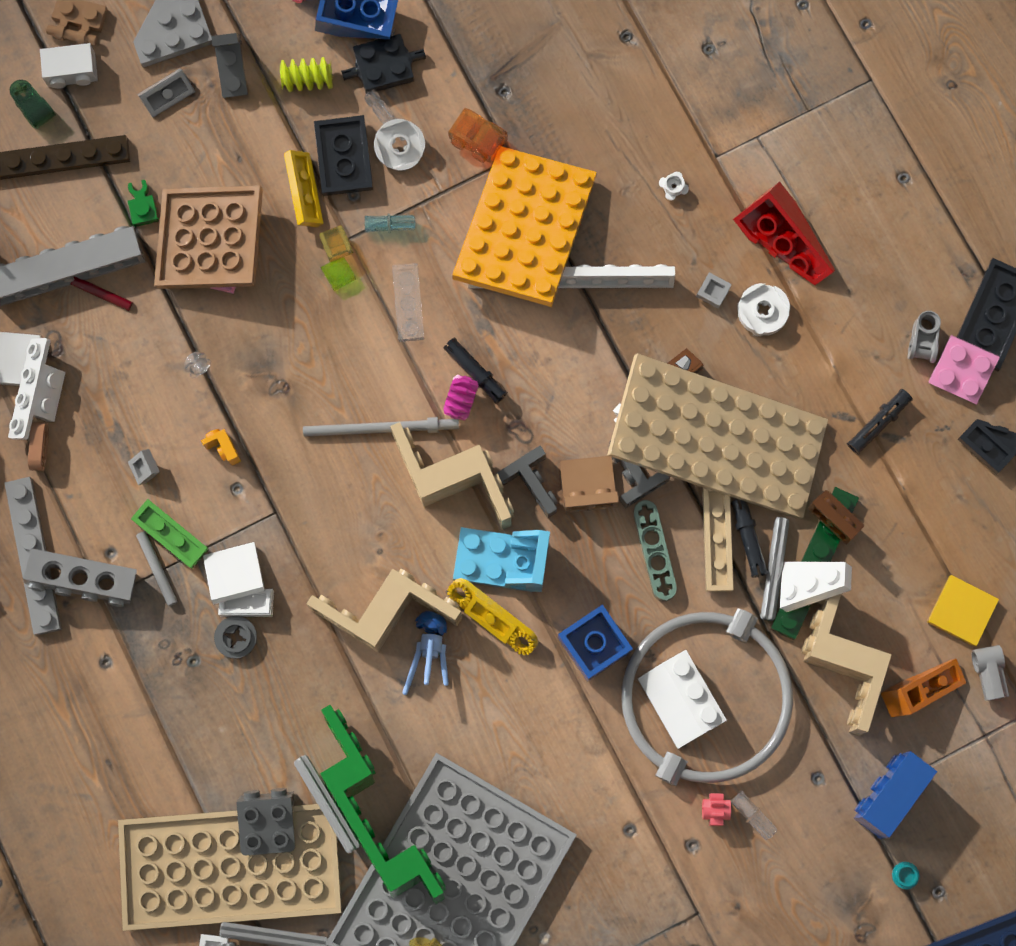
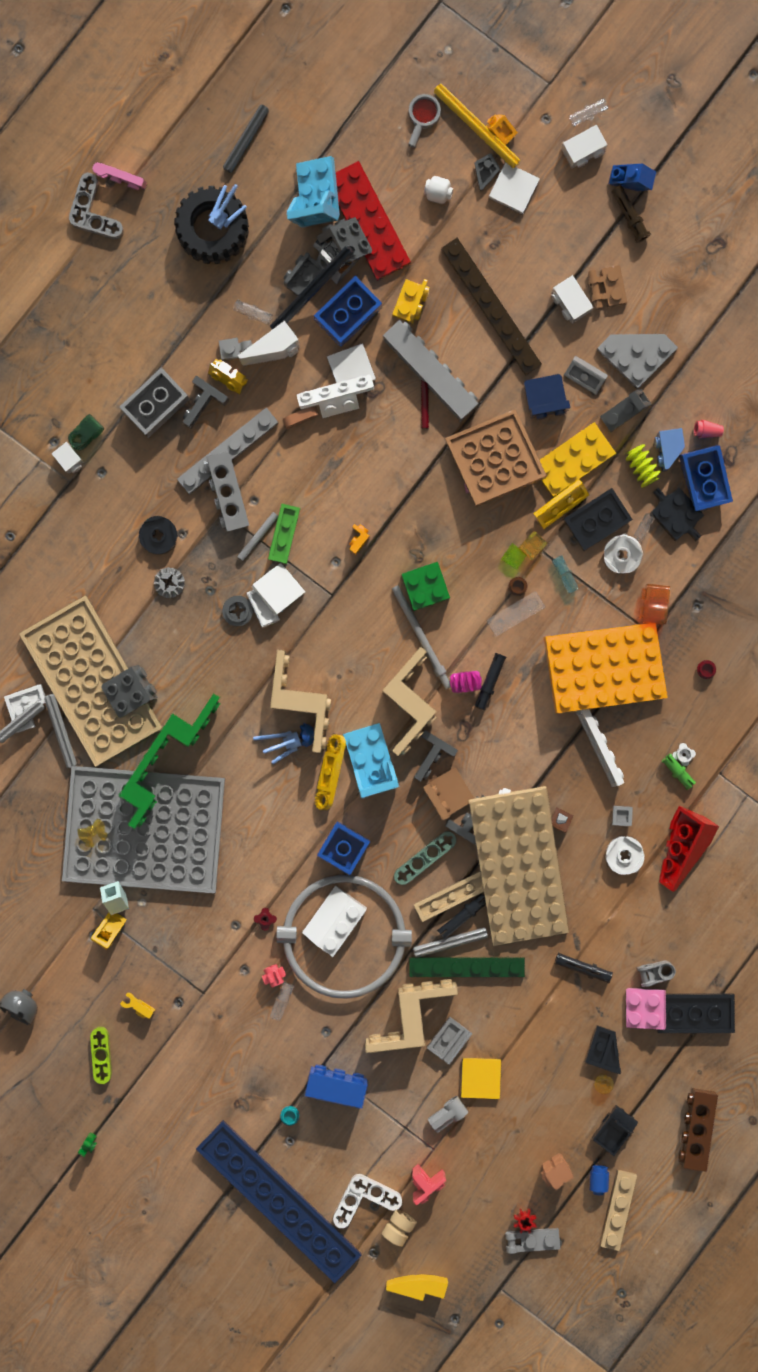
camera: 60 degrees right, 10 degrees up
(32, 106) = (531, 291): clear green piece -> none
(78, 700) = (149, 529): none -> black plate
(143, 207) = (497, 401): green plate -> none
(143, 466) = (320, 494): light grey plate -> none
(167, 147) = (546, 396): none -> dark blue bracket
(170, 706) = (171, 591): none -> light grey gear
(196, 364) = (405, 493): clear plate -> none
(259, 148) = (575, 459): none -> yellow plate
(299, 34) = (670, 446): none -> medium blue slope
(321, 392) = (425, 586): none -> green brick
(327, 804) = (158, 724): light grey axle -> none
(376, 285) = (517, 586): none -> reddish brown plate
(584, 114) = (706, 669): none -> dark red plate
(645, 791) = (270, 919): none -> dark red plate
(691, 200) = (678, 771): none -> bright green pin
(812, 582) = (449, 972): white wing -> none
(836, 517) = (502, 968): reddish brown bracket -> none
(897, 626) = (449, 1040): none -> light grey plate
(923, 688) = (415, 1075): orange slope -> none

